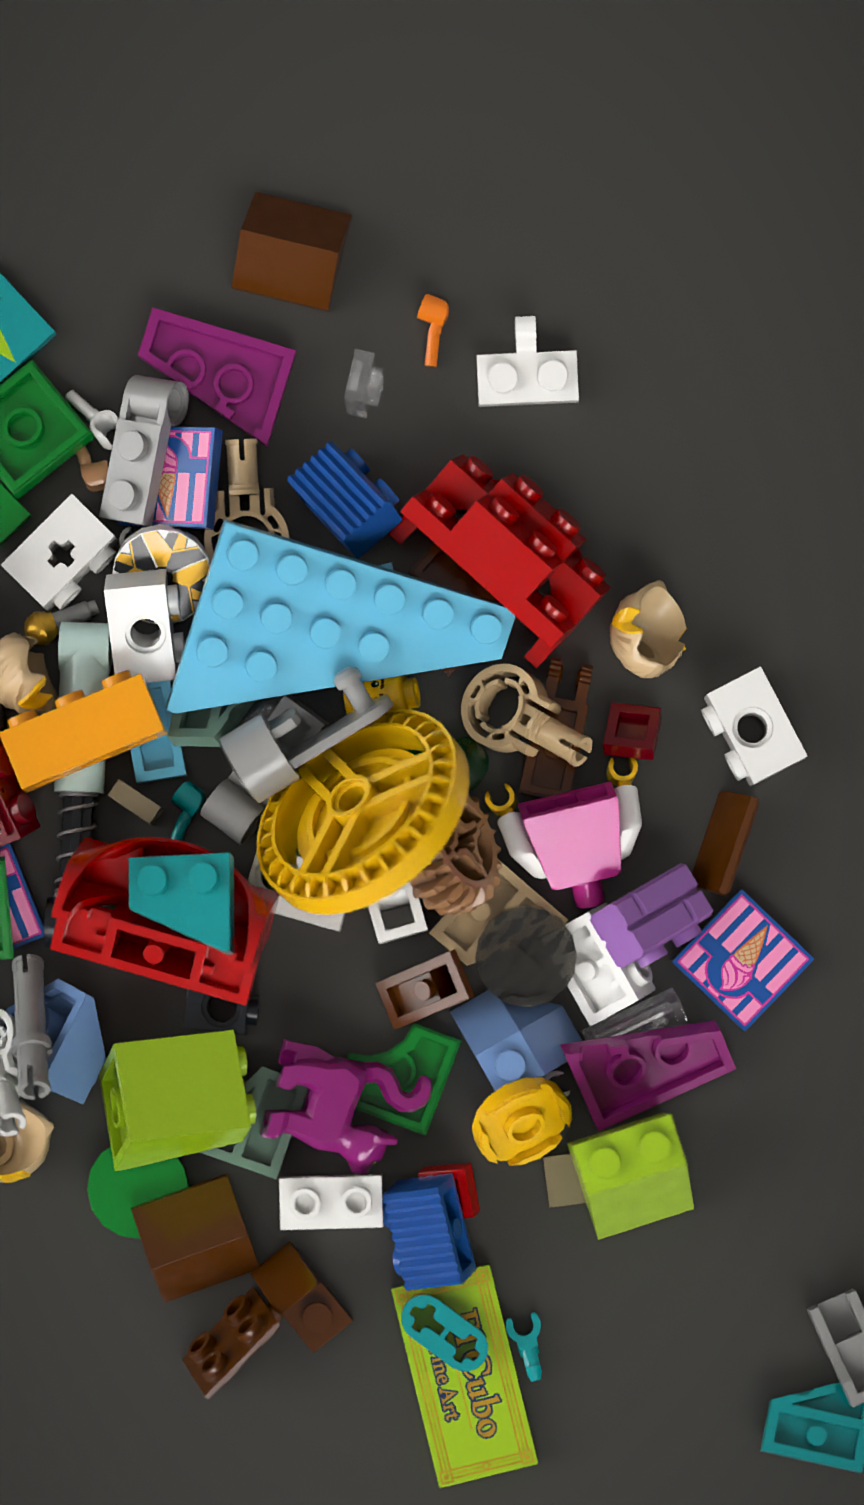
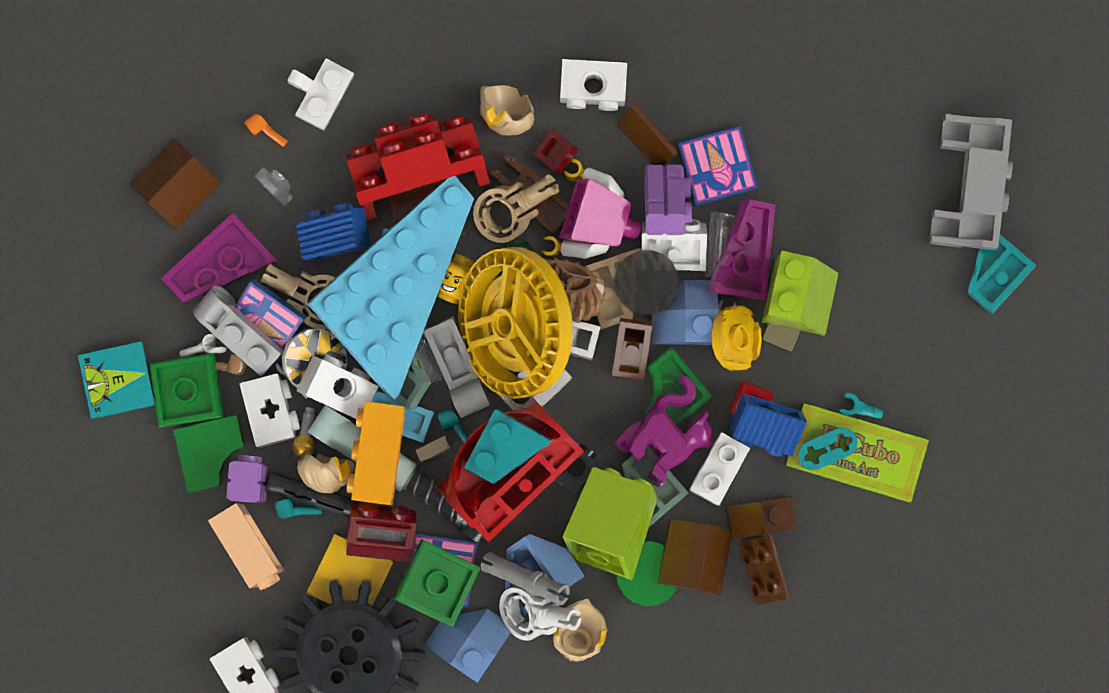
camera: 65 degrees left, 0 degrees up
(262, 758) = (455, 362): light grey piece -> none

